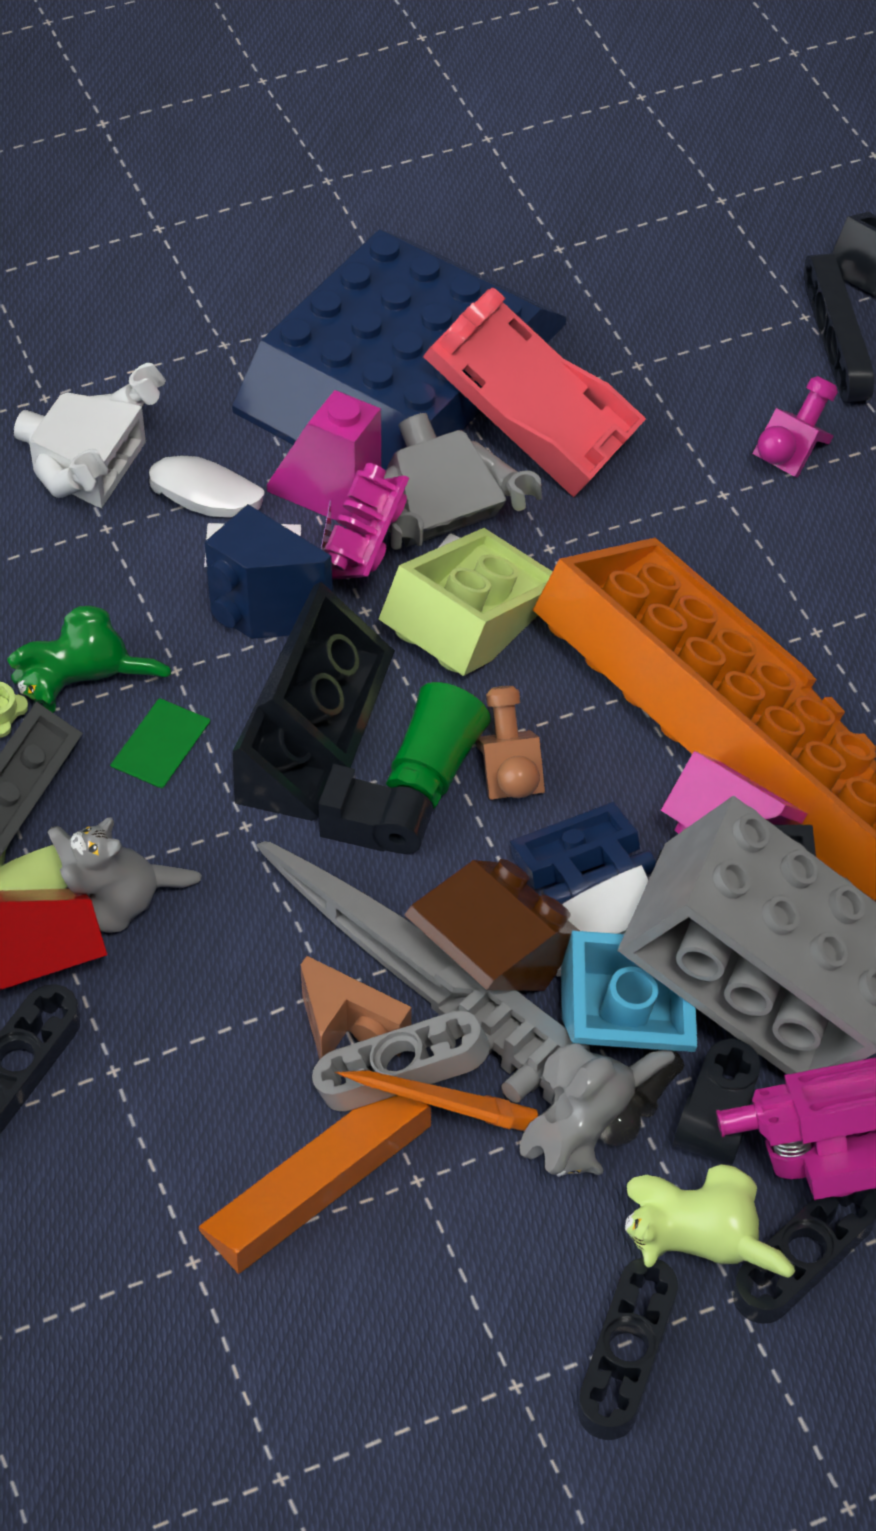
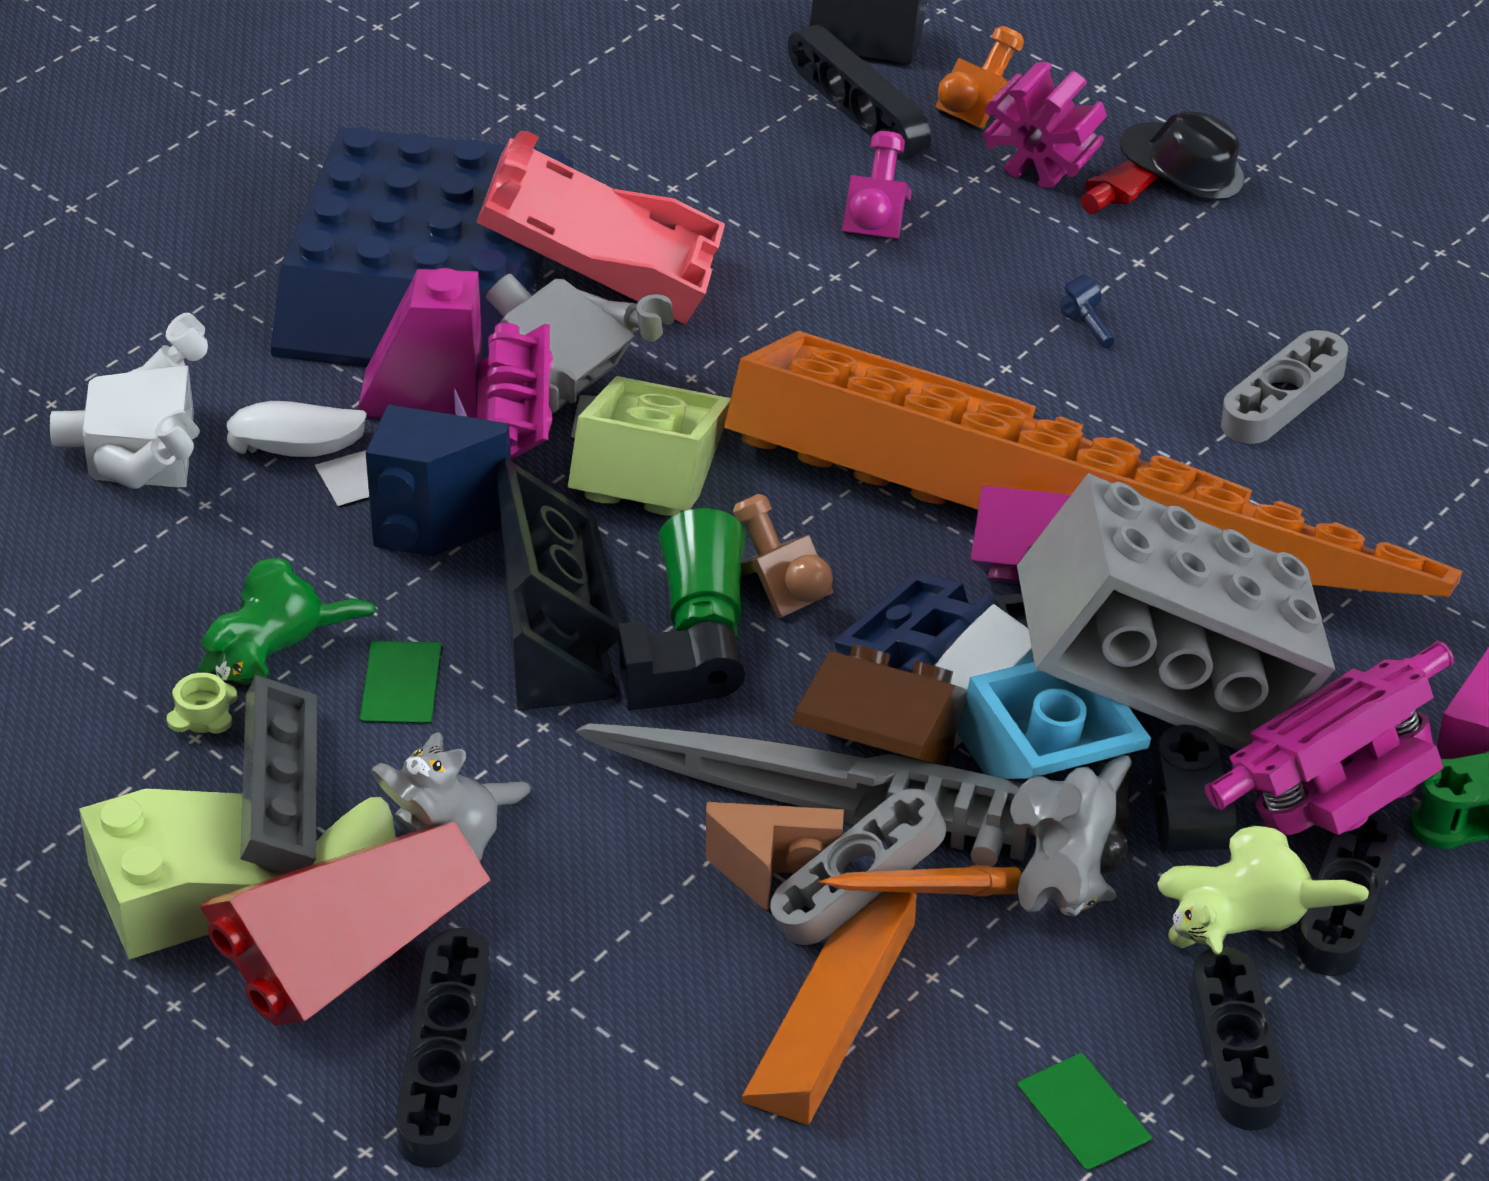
camera: 25 degrees left, 10 degrees down
(466, 1358) = (1084, 1111): none -> green sticker

